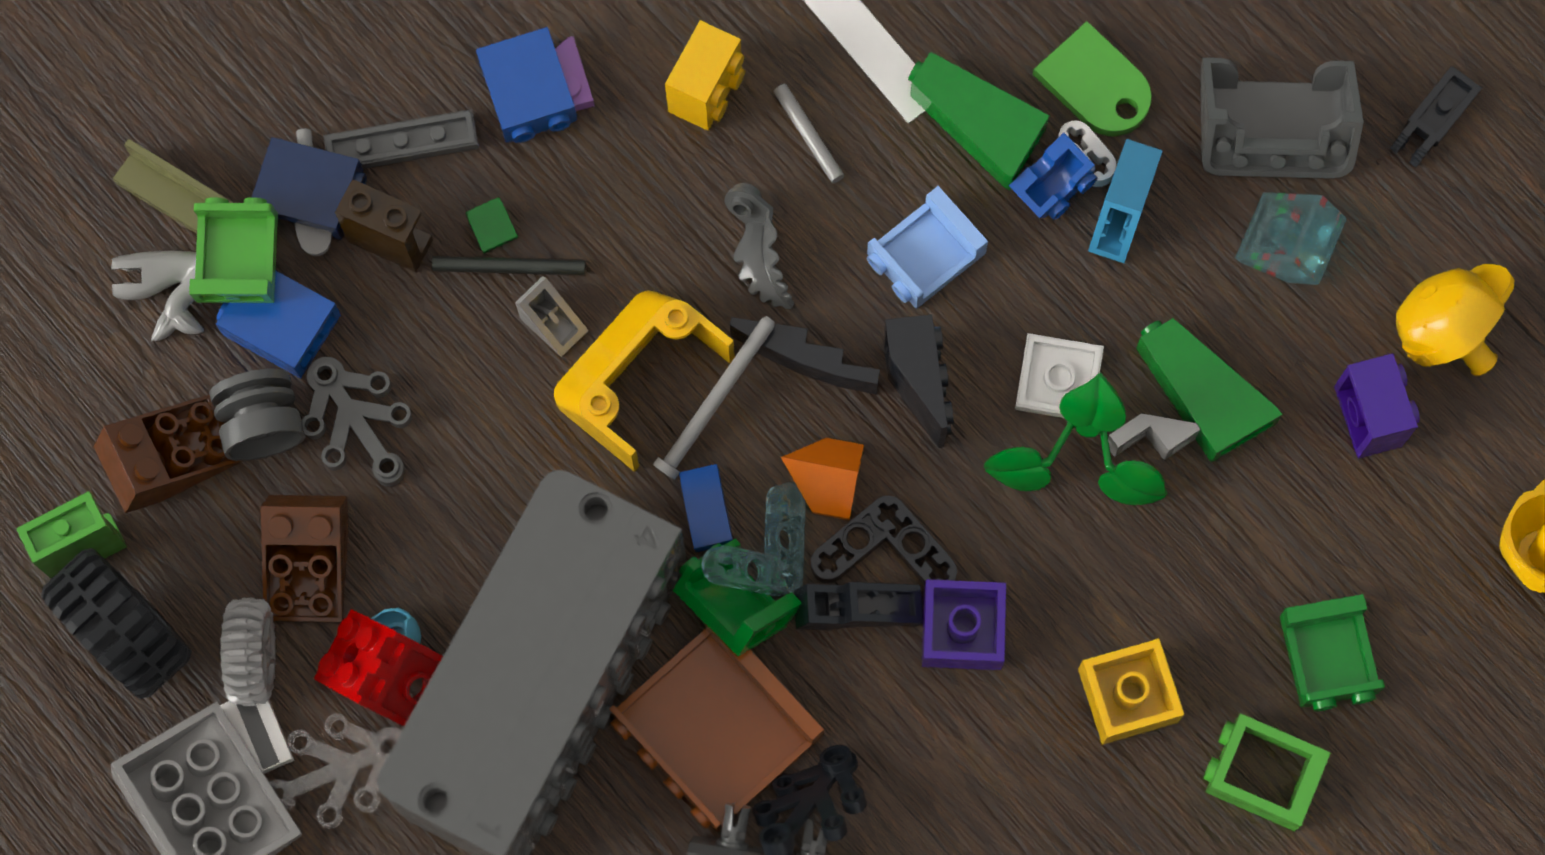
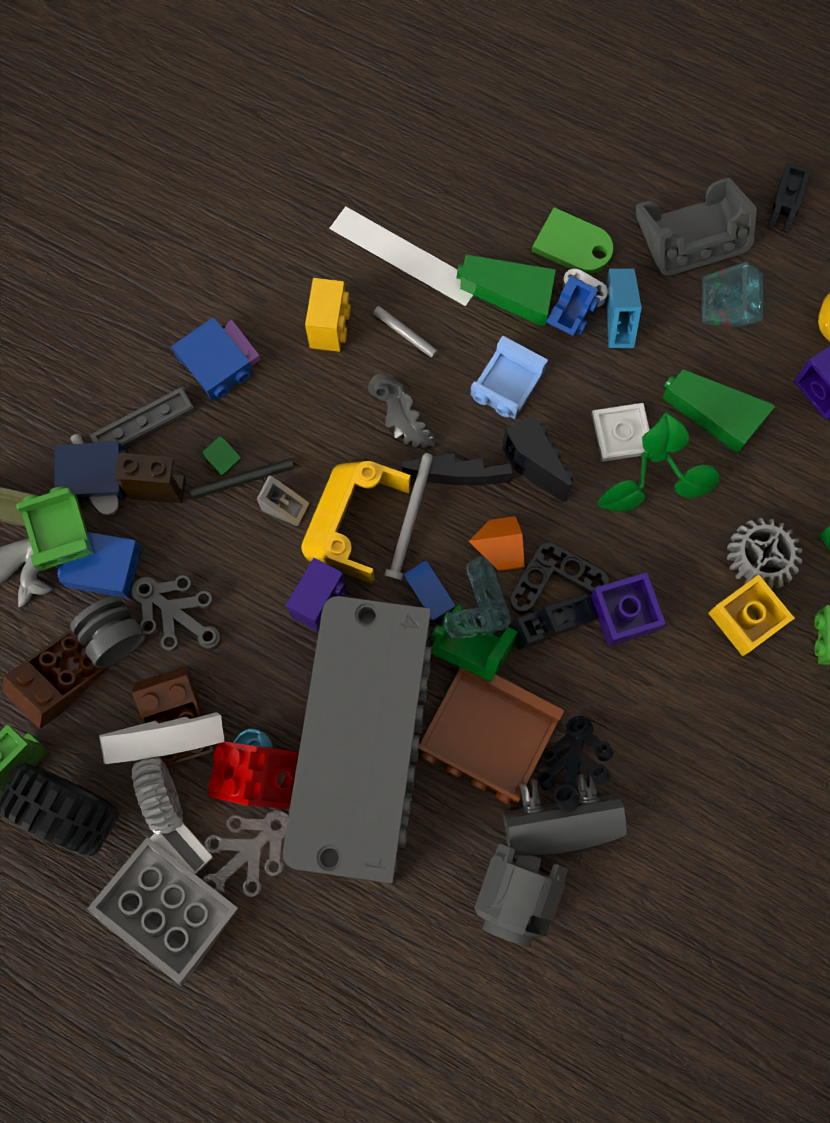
camera: 20 degrees left, 0 degrees up
(279, 580) = (161, 739): none -> white slope
(551, 447) = (313, 590): none -> dark purple brick
(1163, 433) = (701, 444): light grey slope -> none
(1175, 602) = (776, 536): none -> light grey gear

